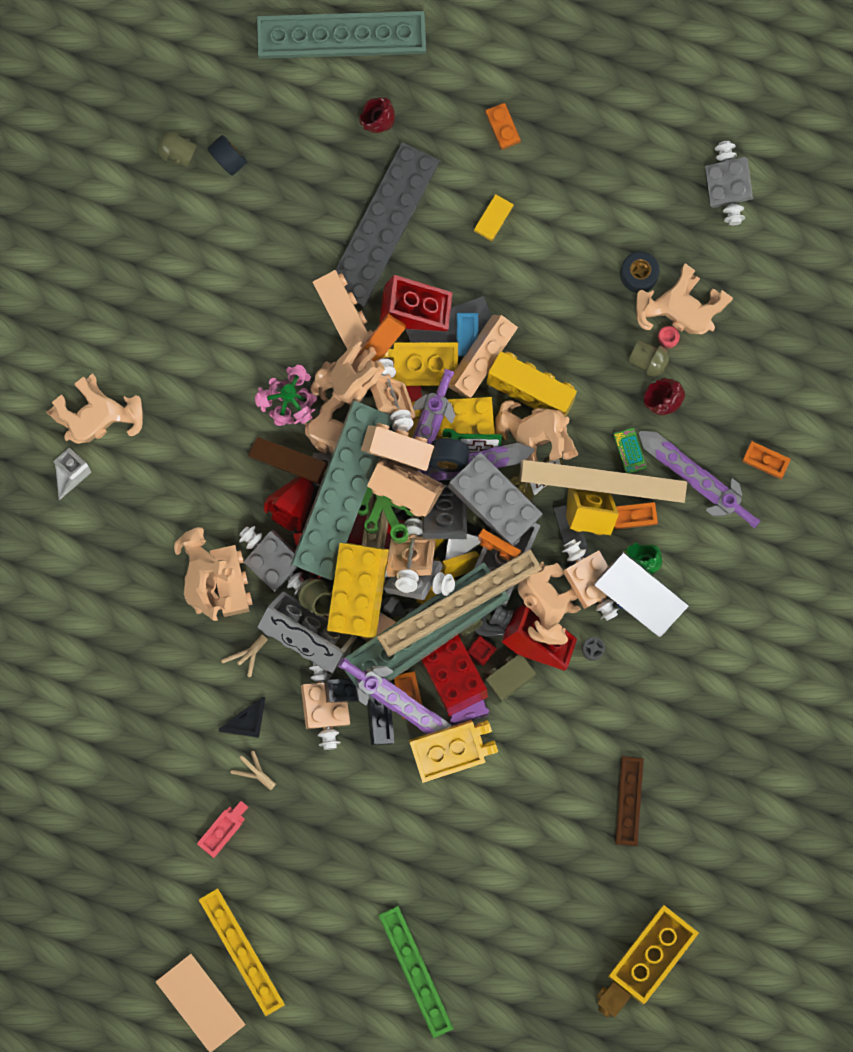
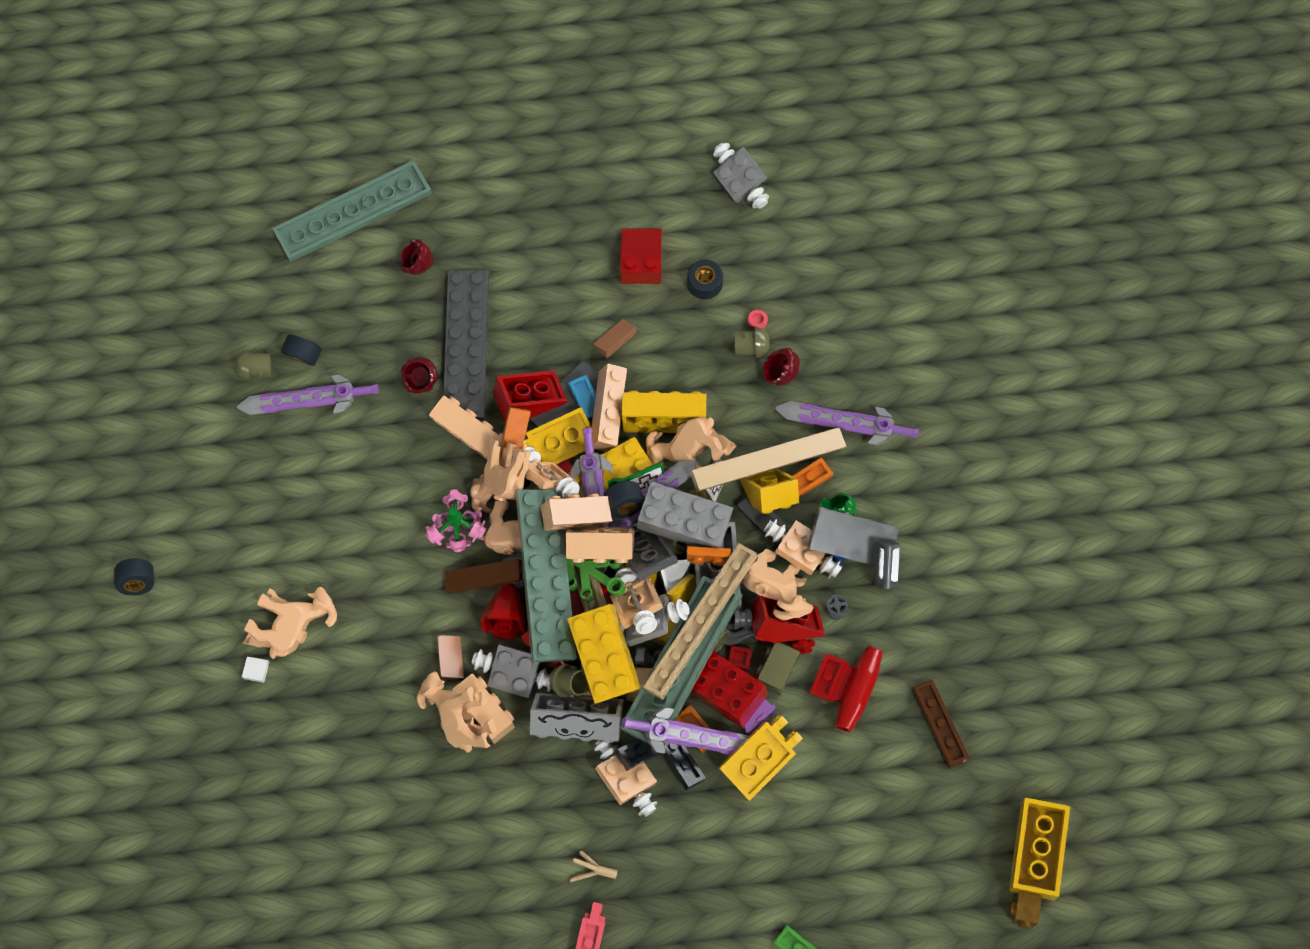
camera: 20 degrees left, 10 degrees down
(46, 442) = (255, 669): none -> white tile
(69, 471) = (290, 684): white slope -> none
(223, 519) = (450, 657): none -> slope
(243, 216) = (340, 394): none -> sword
(247, 722) = (562, 827): black tile -> none
(257, 645) = (535, 761): tan plant -> none
(323, 235) = (419, 375): none -> dark red hair
(493, 217) = (558, 295): yellow tile -> none
(503, 126) = (527, 220): orange plate -> none
(525, 288) = (615, 338): none -> nougat slope
(543, 669) = (803, 646): none -> red plant
(564, 724) = (849, 685): none -> red plate
(592, 217) = (641, 256): none -> red slope
(629, 451) = (775, 426): tile -> none
(659, 634) = (887, 564): none -> dark grey tile
(680, 306) = (755, 290): light nougat animal -> none
(766, 460) = (895, 378): orange plate -> none

